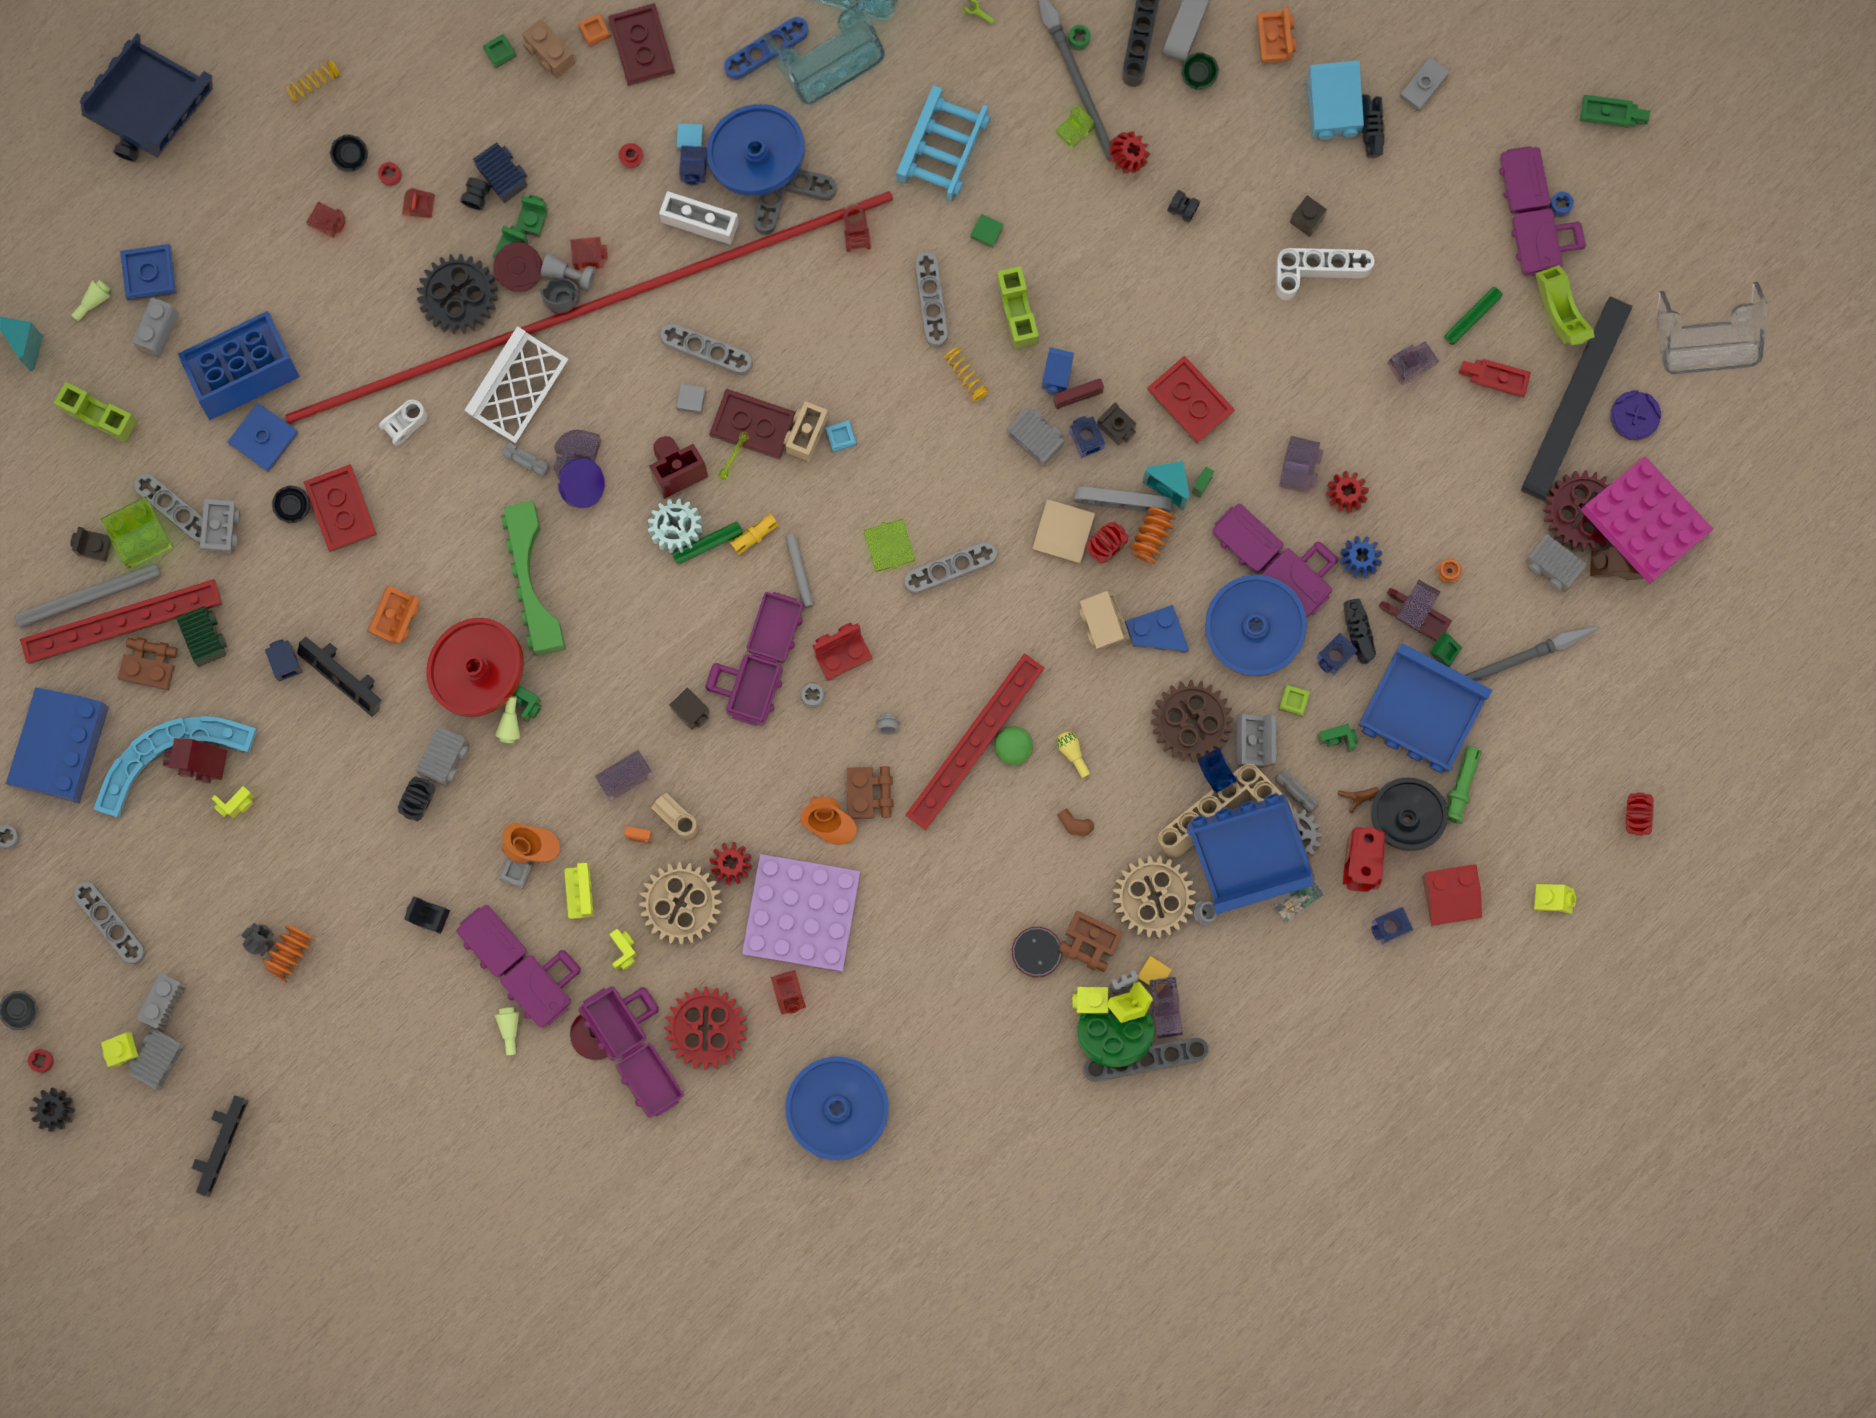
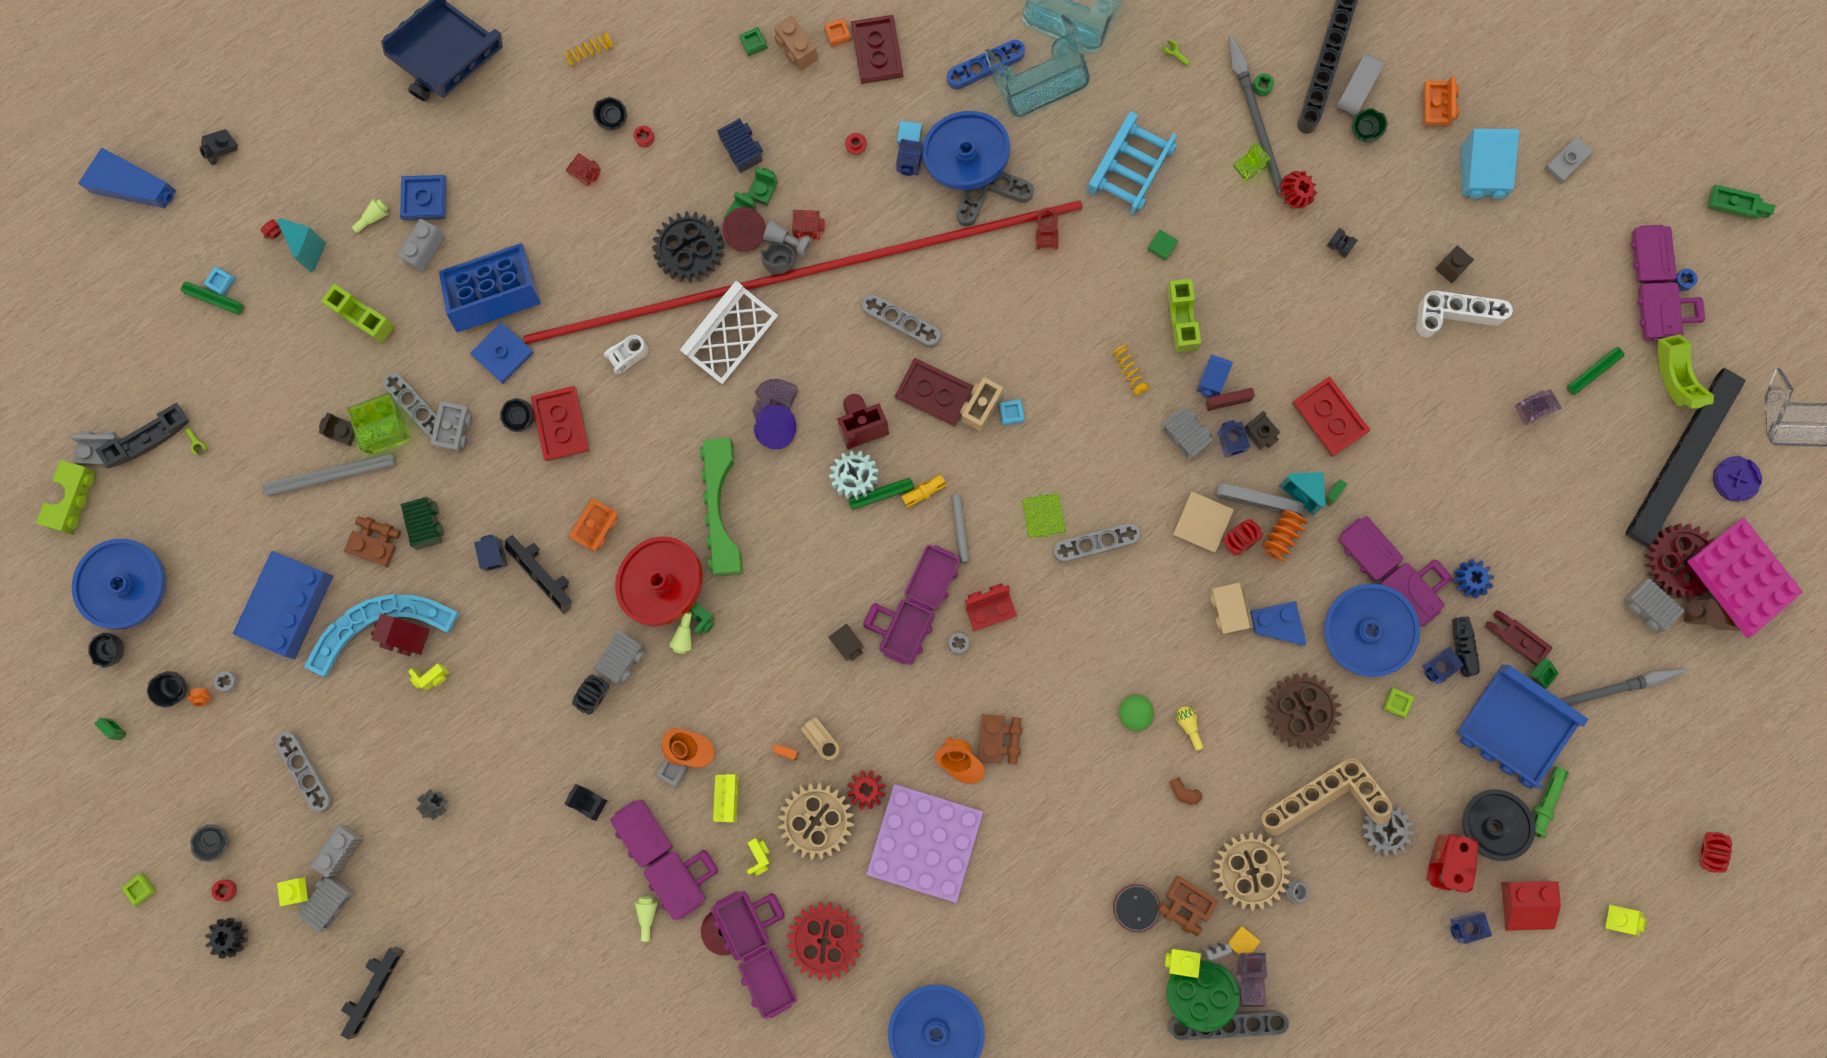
camera: 15 degrees right, 0 degrees up
(119, 621) = (352, 501): red plate -> none
(287, 952) = (456, 821): orange piece -> none
(418, 203) = (665, 164): clear red slope -> none
(475, 193) = (715, 161): black wheel -> none
(525, 459) = (729, 399): light grey axle -> none
(624, 775) = (779, 696): clear purple brick -> none
(690, 398) = (882, 363): light grey tile -> none
(699, 218) = (908, 204): white brick -> none
(723, 473) = (903, 432): clear neon green hinge -> none
(788, 992) = (904, 916): clear red bracket -> none
(887, 723) = (1024, 678): light grey plate -> none
(934, 299) = (1106, 300): light grey beam -> none
(975, 742) = (1101, 705): red plate -> none
(1131, 1004) = (1221, 972): neon yellow bracket -> none
(1217, 770) = (1323, 761): clear blue brick -> none
(1251, 853) = (1349, 845): blue panel -> none
(1256, 740) = (1361, 736): light grey bracket -> none
(1293, 903) = (1383, 889): clear tile -> none
(1296, 791) = (1392, 788): light grey axle -> none
(1300, 464) = (1425, 487): clear purple brick -> none
(1334, 735) = (1432, 742): green bracket -> none
(1338, 488) = (1457, 518): red gear -> none
(1359, 797) = (1450, 801): dark orange bar -> none
(1373, 126) = (1520, 195): black hinge -> none
(1418, 604) = (1526, 629): clear purple brick -> none
(1449, 564) = (1557, 596): orange plate -> none
(1497, 376) = (1613, 428): red hinge -> none

